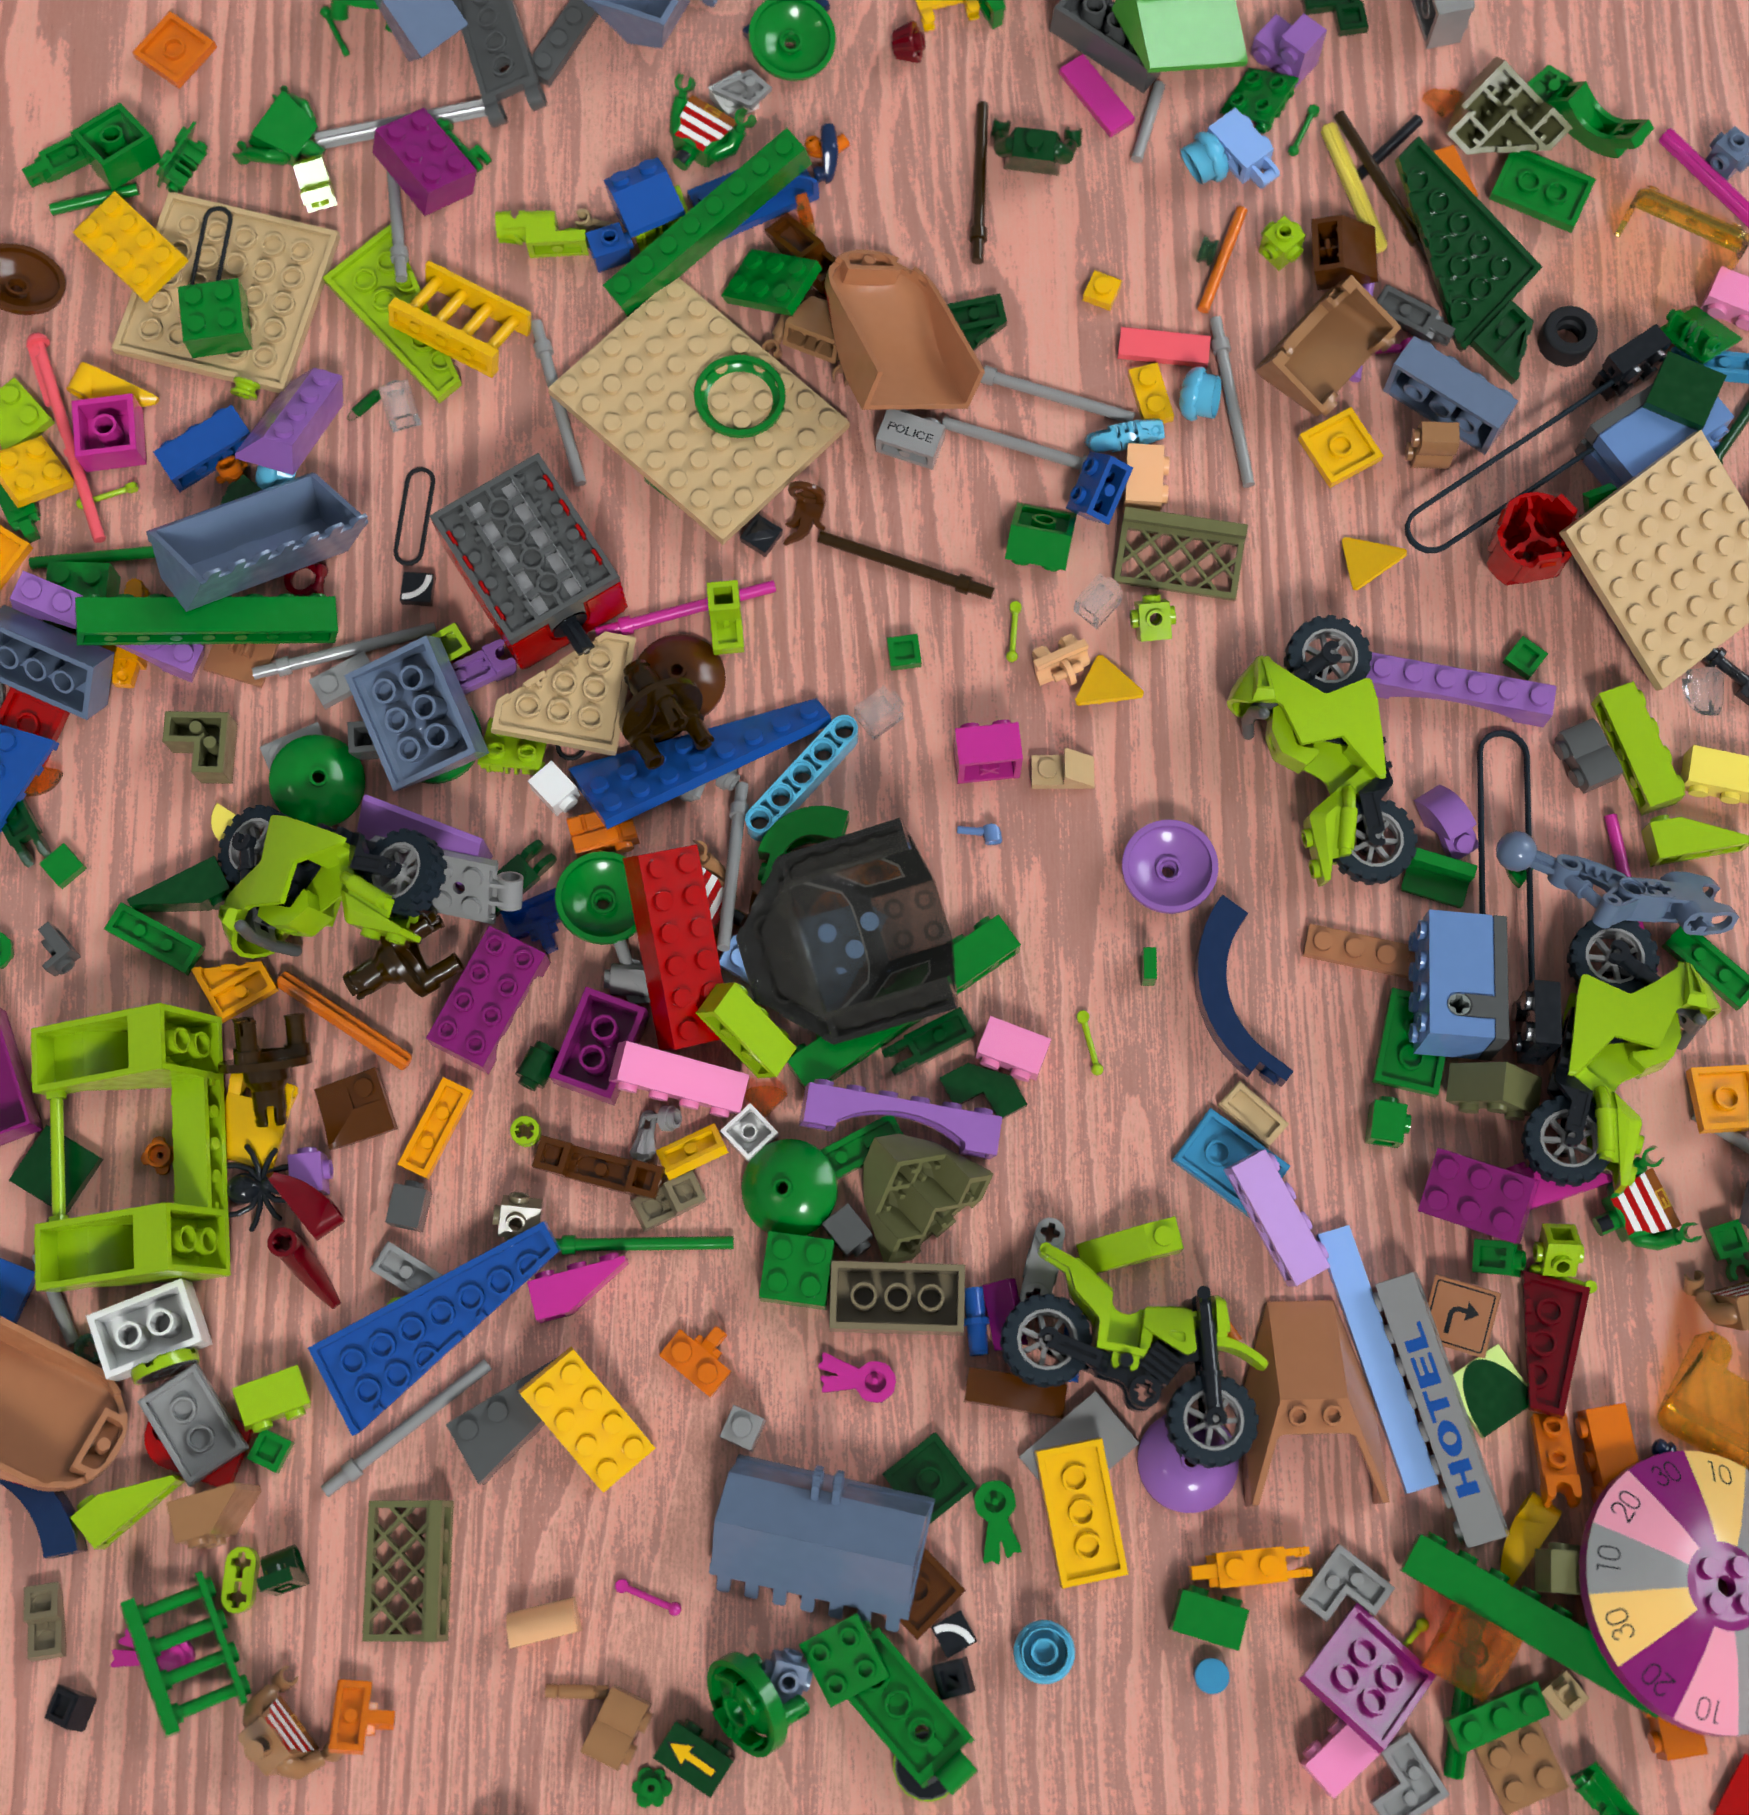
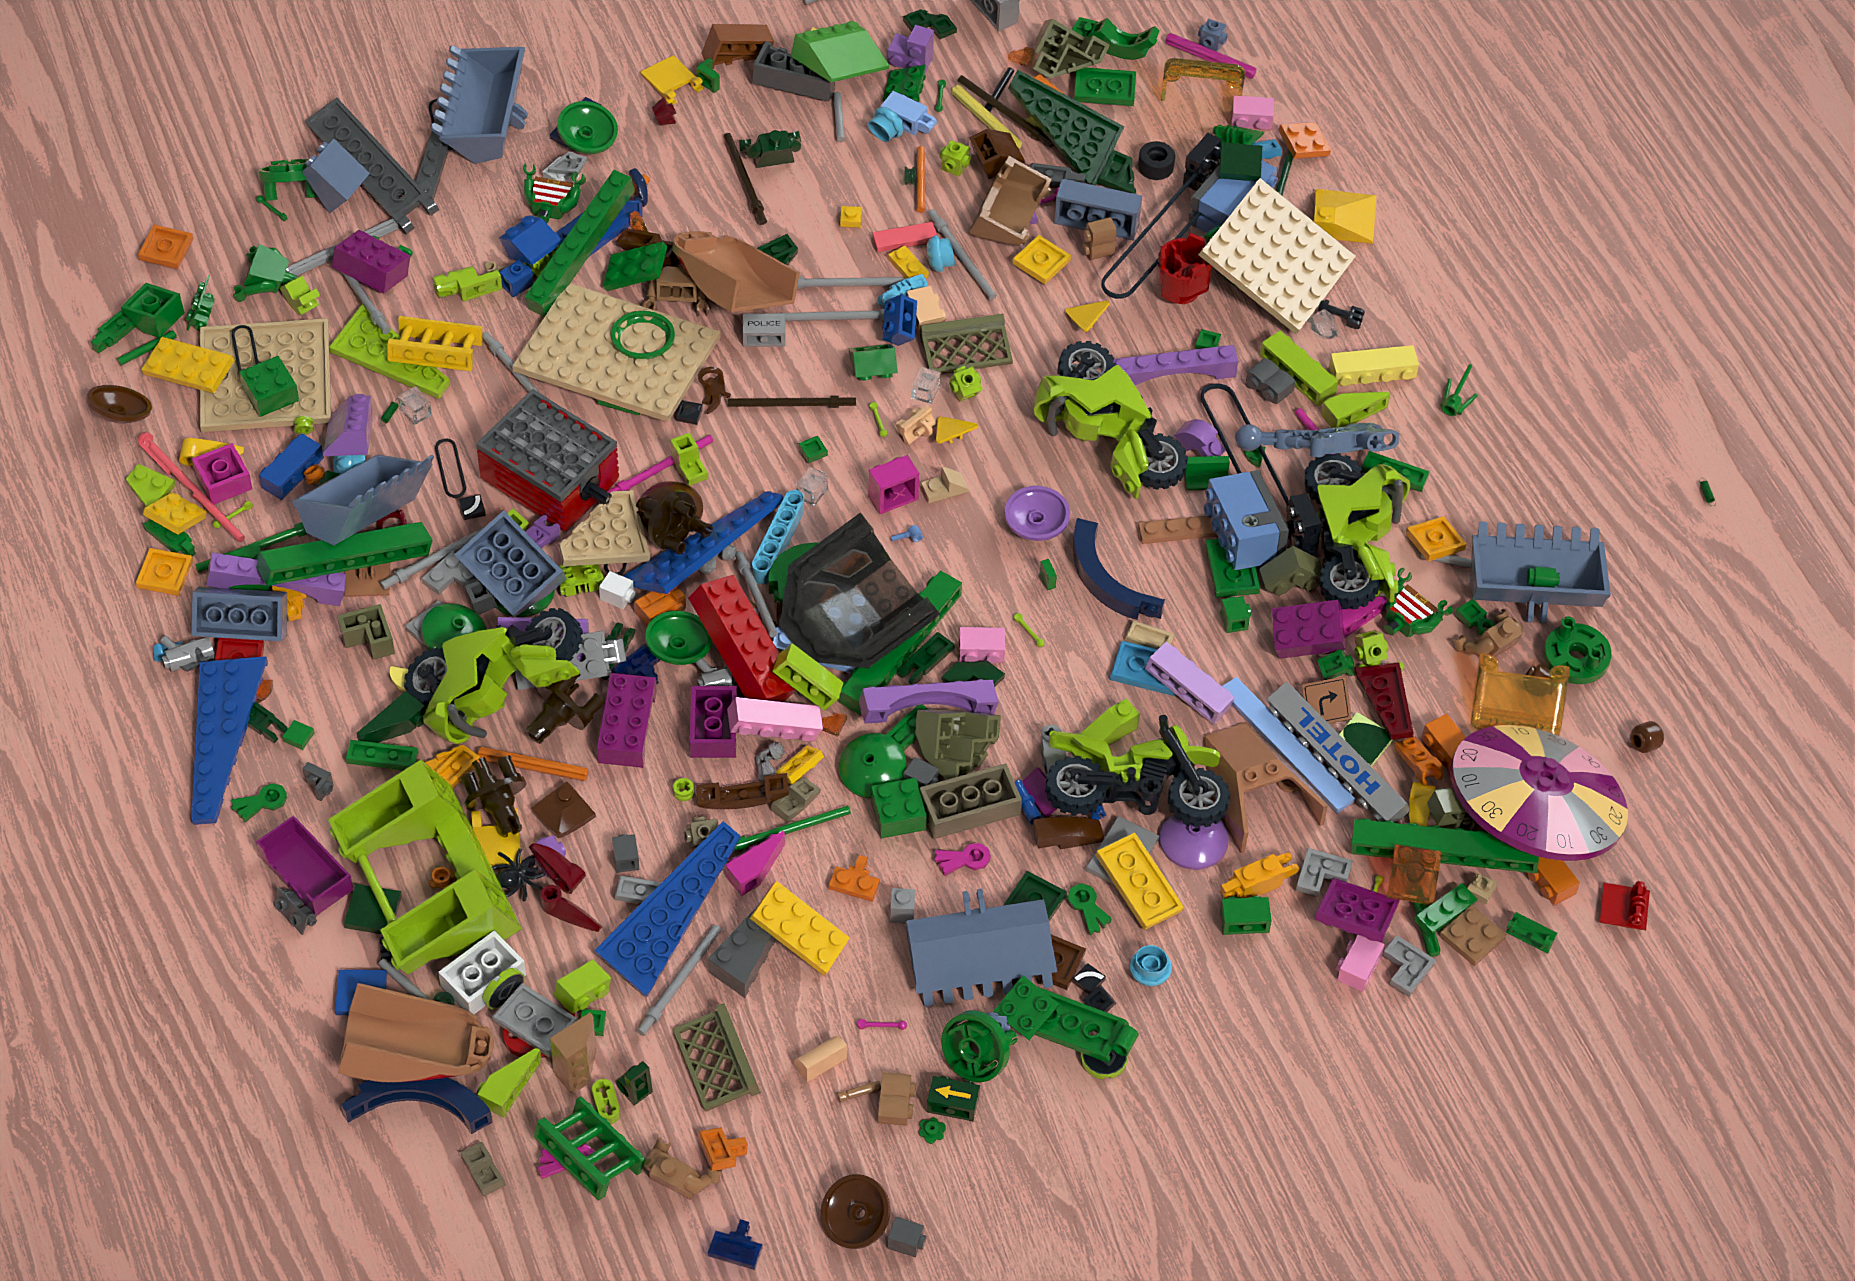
camera: 25 degrees left, 20 degrees down
(70, 1708) = (522, 1213): black slope -> none
(435, 1128) = (623, 804): light orange plate -> none
(537, 1066) = (675, 748): dark green brick -> none
(749, 1132) = (832, 742): white piece -> none
(1096, 95) = (799, 111): dark pink tile -> none
(1211, 1675) = (1261, 948): dark azure tile -> none

